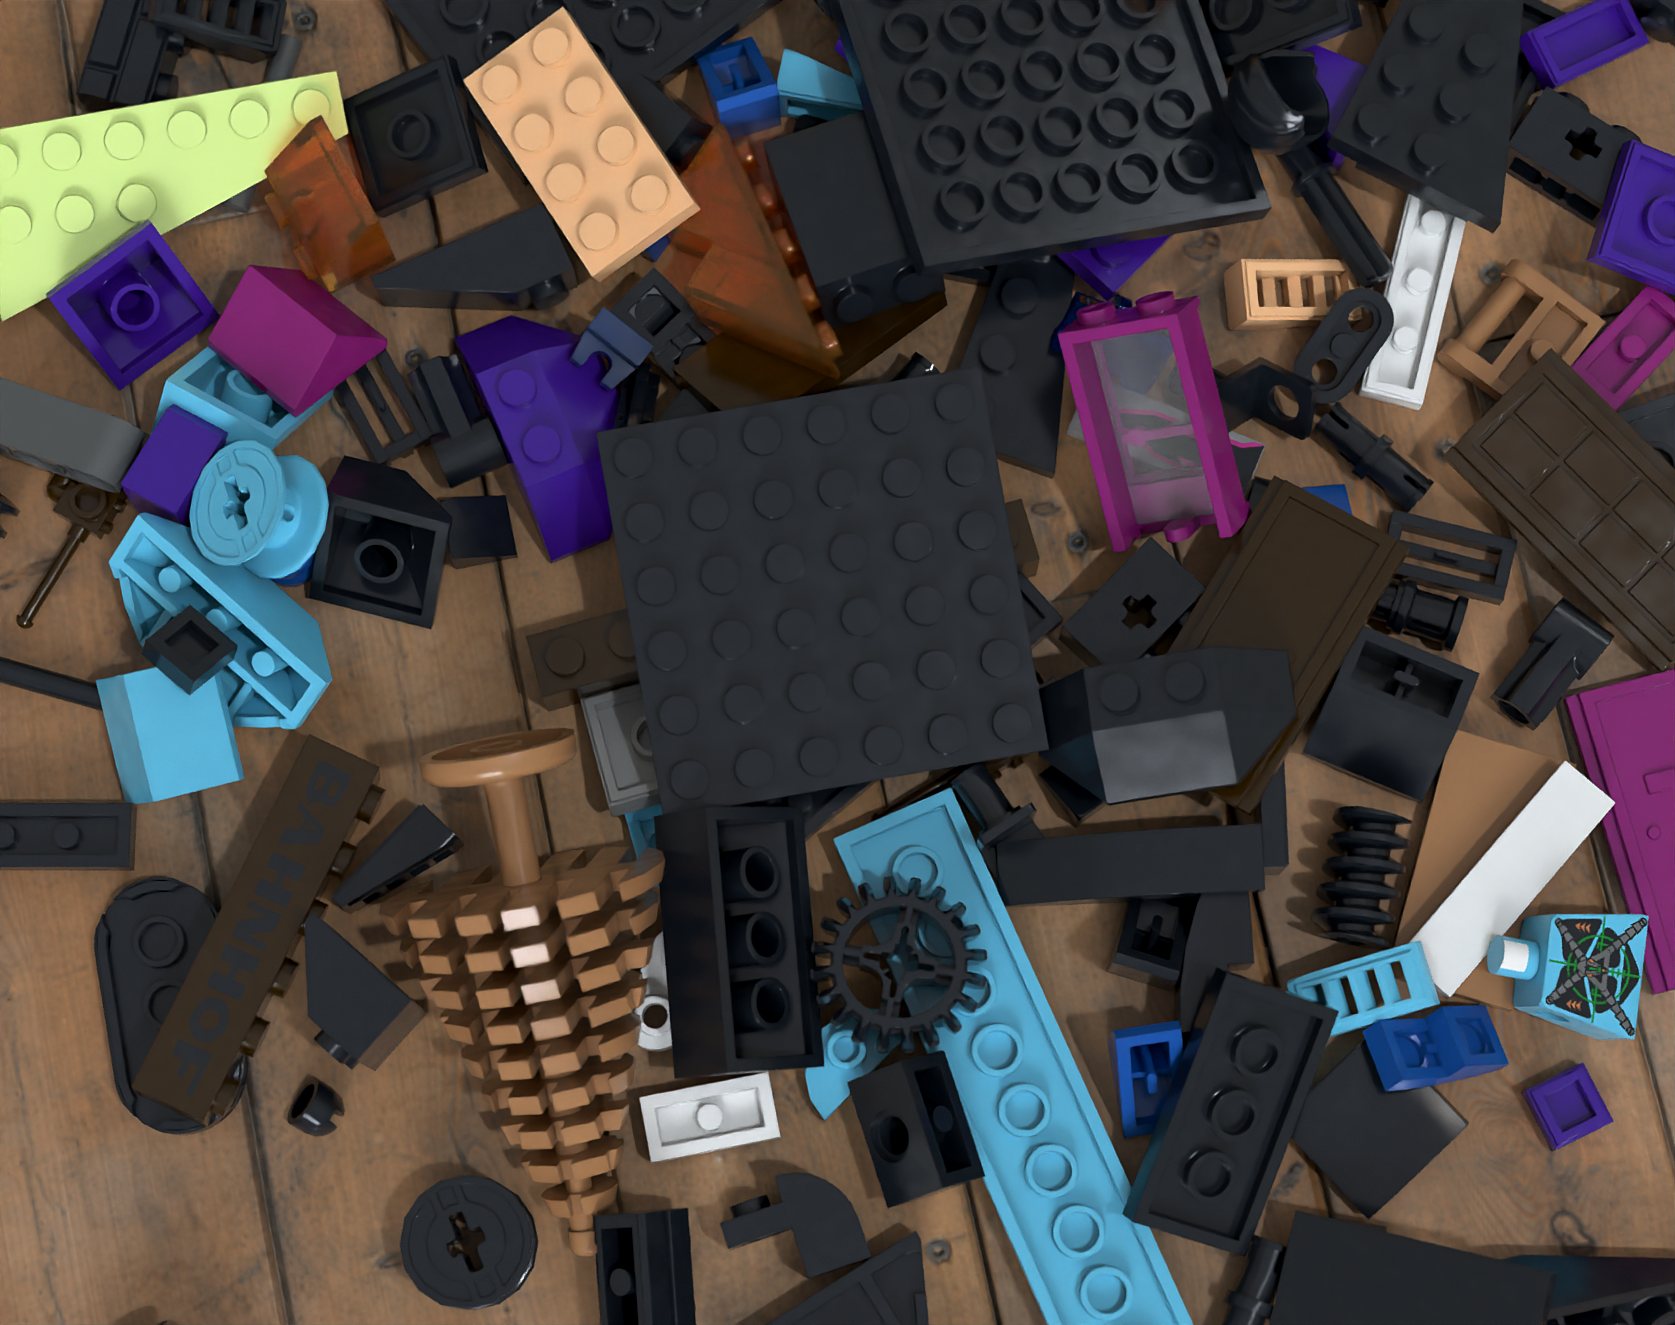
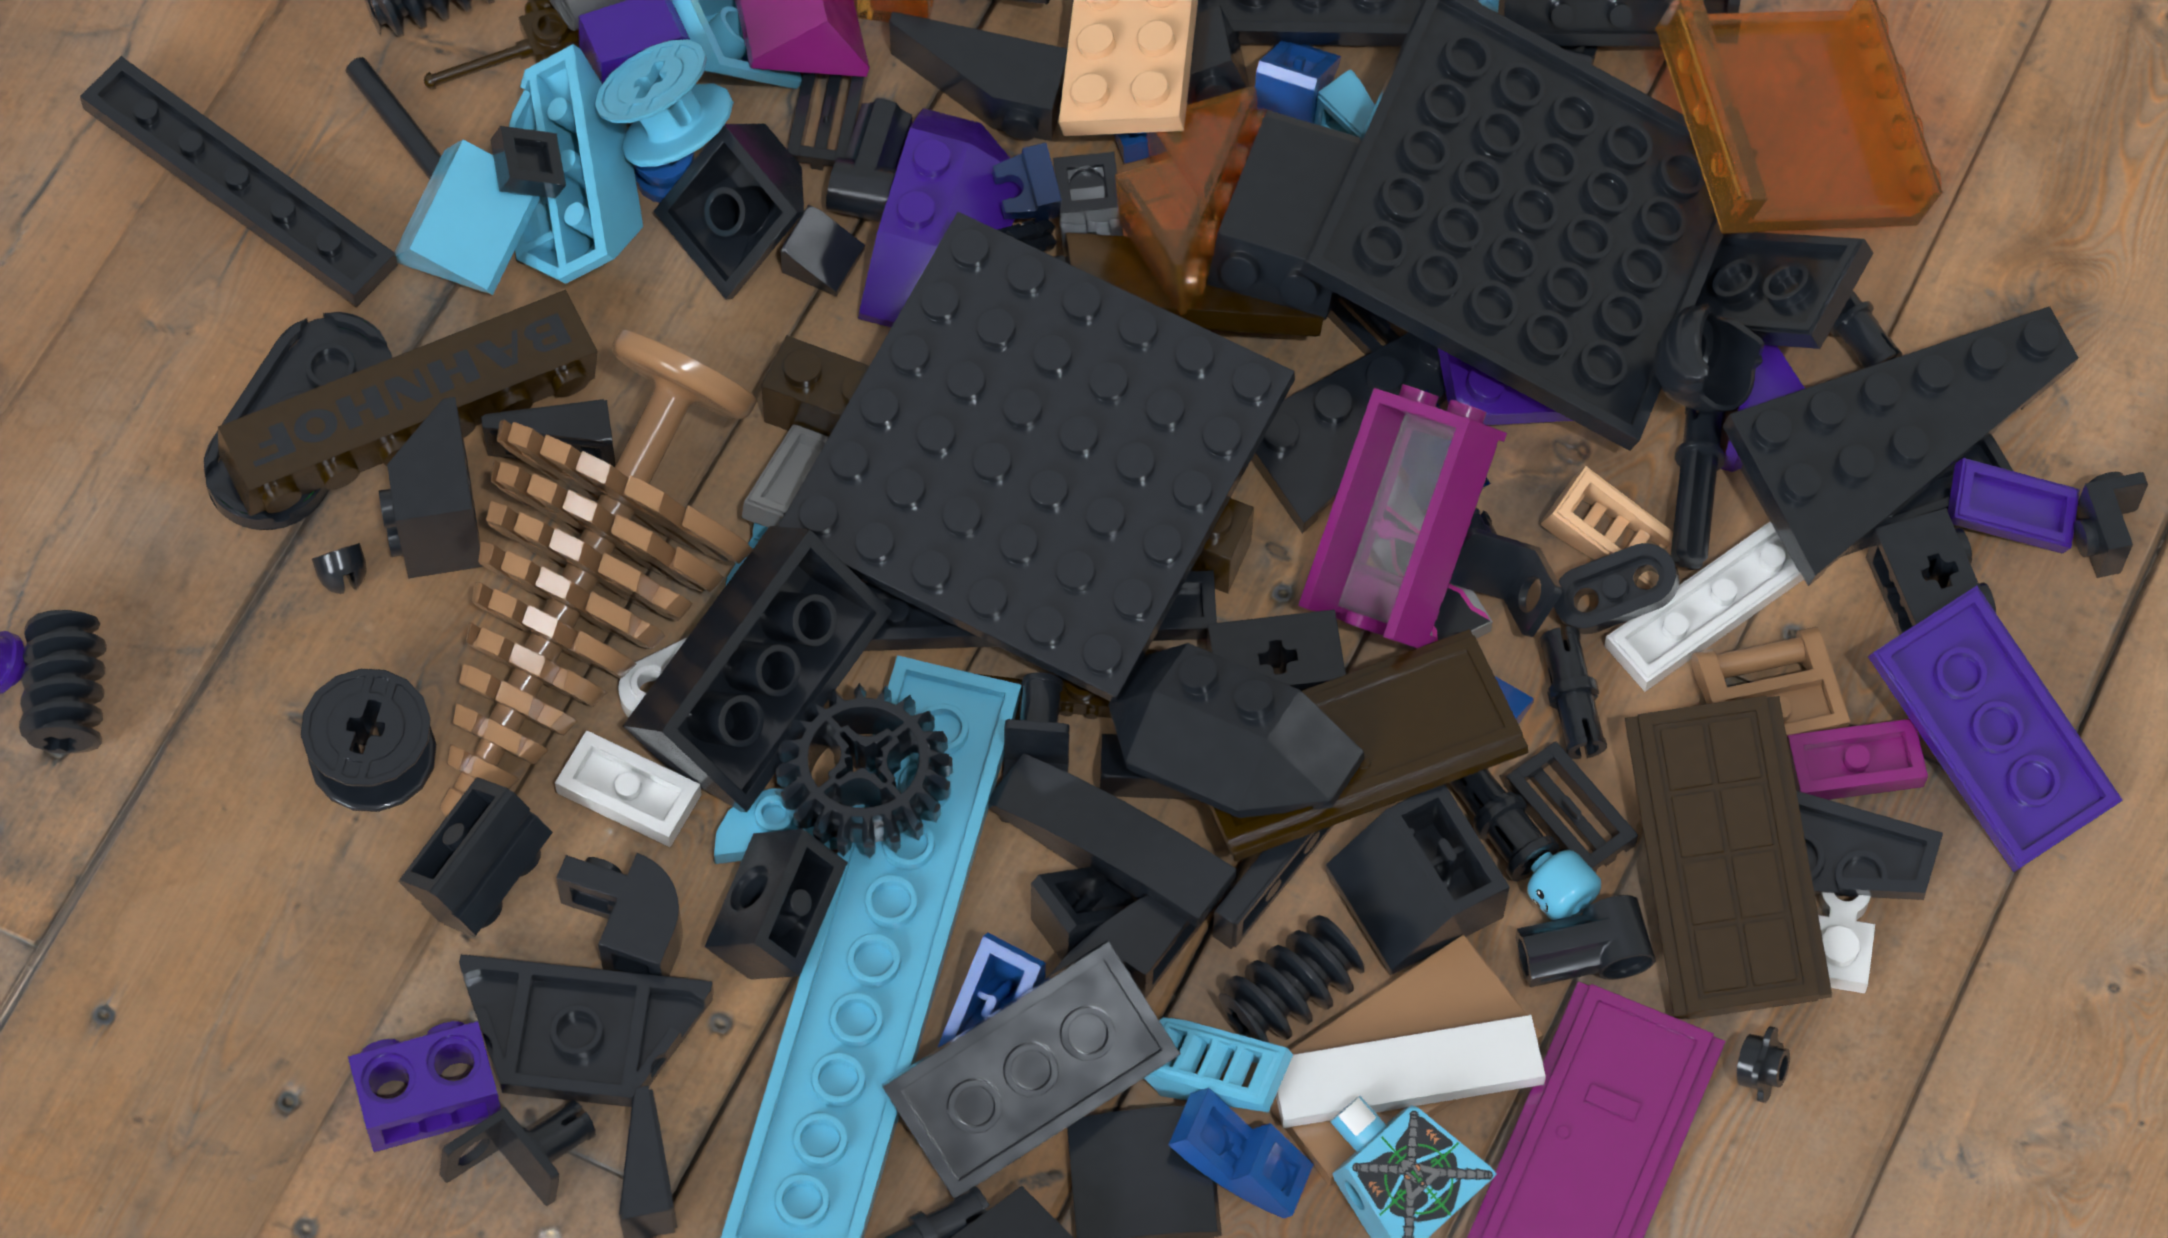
camera: 35 degrees right, 15 degrees down
(1496, 628) = (1563, 884): none -> medium azure piece

